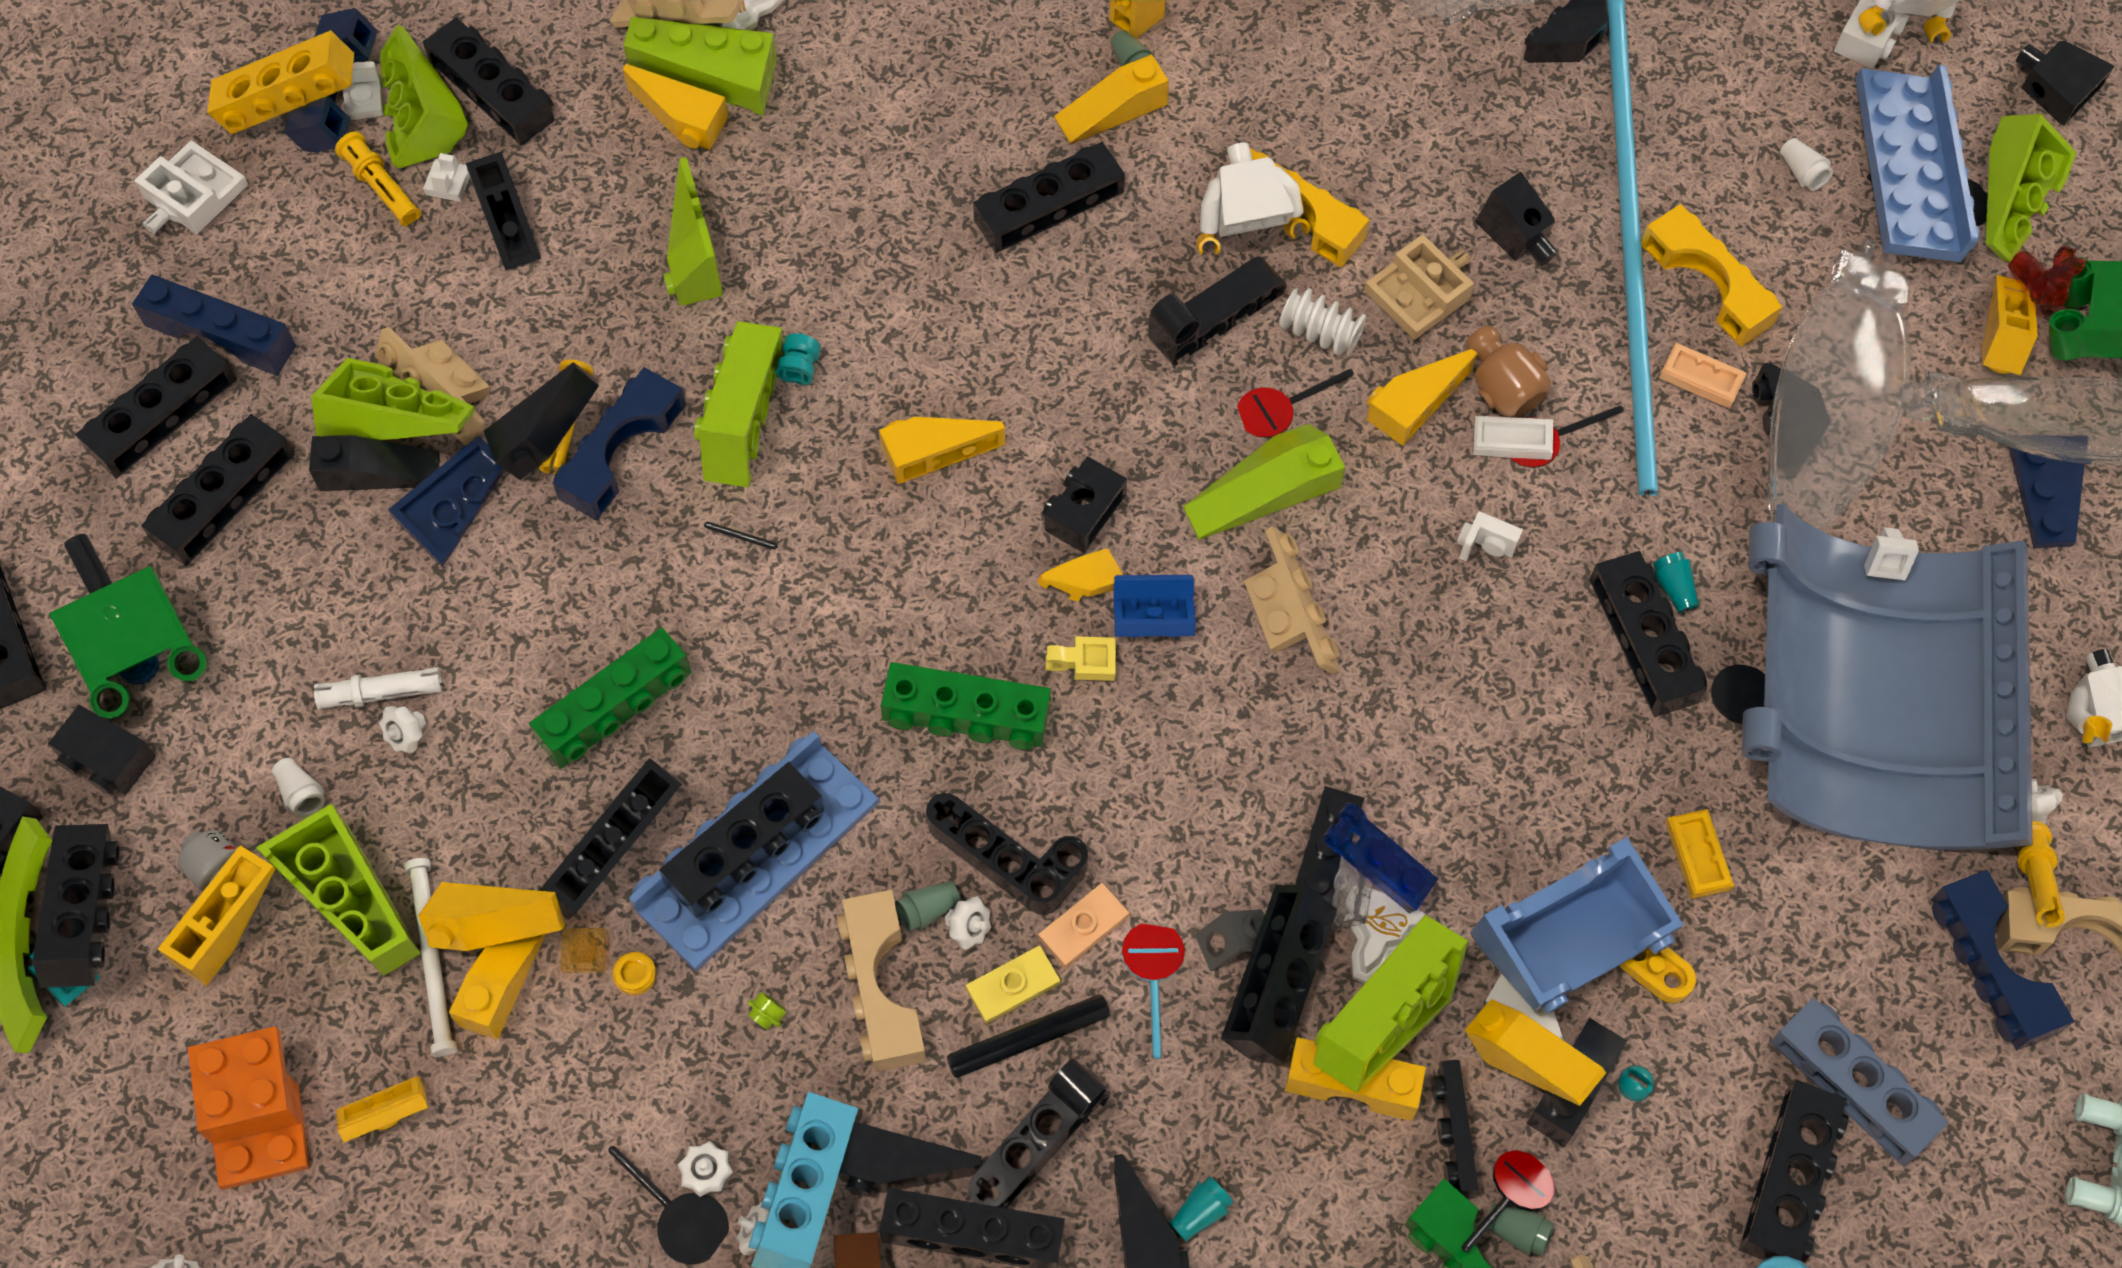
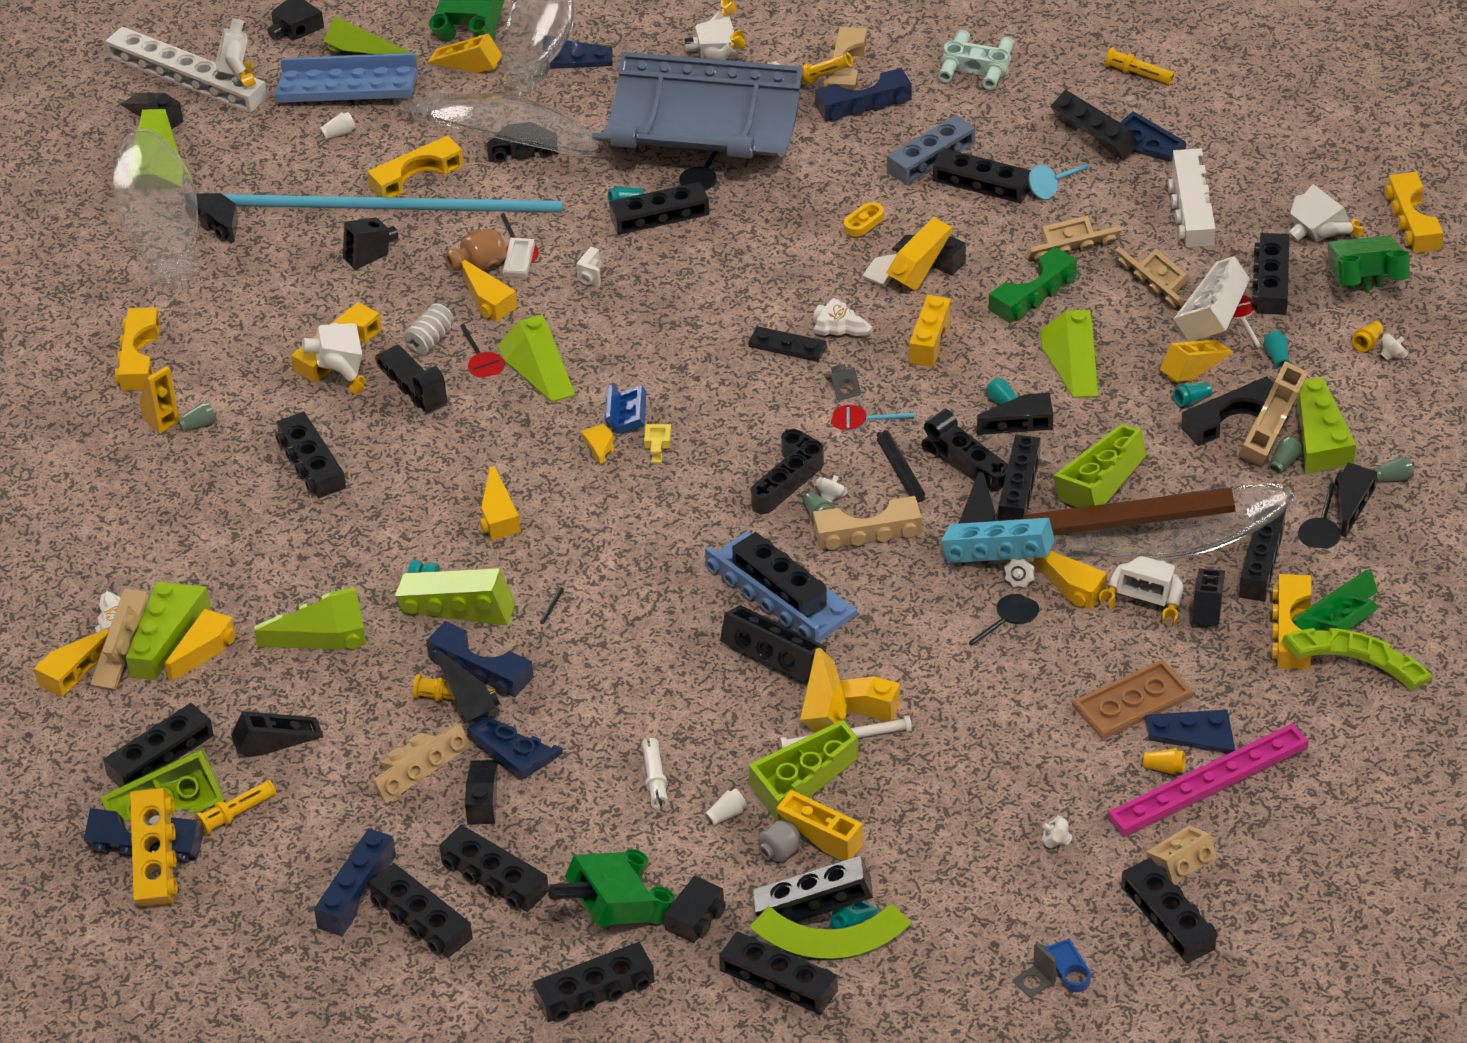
camera: 85 degrees left, 20 degrees down
(189, 188) = (227, 913): white plate -> none
(248, 1107) = (942, 795): orange bracket -> none
(374, 404) = (441, 781): lime wedge -> none
(381, 1109) = (947, 745): yellow plate -> none
(402, 728) = (687, 756): white piece -> none
(447, 178) = (239, 770): white tile -> none
(583, 950) = (845, 662): clear yellow plate -> none
(611, 698) = (673, 651): green brick -> none
(634, 973) = (858, 640): yellow tile -> none
(704, 1168) = (984, 594): white piece -> none
(766, 1011) = (884, 576): lime plate -> none
(965, 705) = (687, 490): green brick -> none
(1013, 984) = (869, 473): light yellow plate -> none
(1082, 523) = (552, 445): black brick -> none
(1083, 925) = (834, 444): light nougat plate -> none
(1115, 100) = (235, 423): yellow slope -> none
(1279, 974) = (868, 355): black brick -> none
(1286, 605) = (626, 354): tan bracket -> none
(1350, 896) = (814, 325): clear plate -> none
(1380, 859) = (804, 303): clear blue plate -> none
(1392, 1005) = (892, 299): lime wedge -> none
(1421, 286) = (406, 288): tan plate -> none
(1454, 1128) = (961, 293): black plate -> none
(1522, 1183) = (991, 273): red piece -> none
(1523, 1230) = (1014, 271): sand green cone -> none
(1578, 928) = (841, 238): medium blue windscreen -> none
(1699, 854) = (797, 199): yellow plate -> none
(1702, 375) = (485, 178): light nougat plate -> none
(1891, 555) = (620, 109): white tile -> none
(2045, 285) = (449, 35): clear red bar -> none

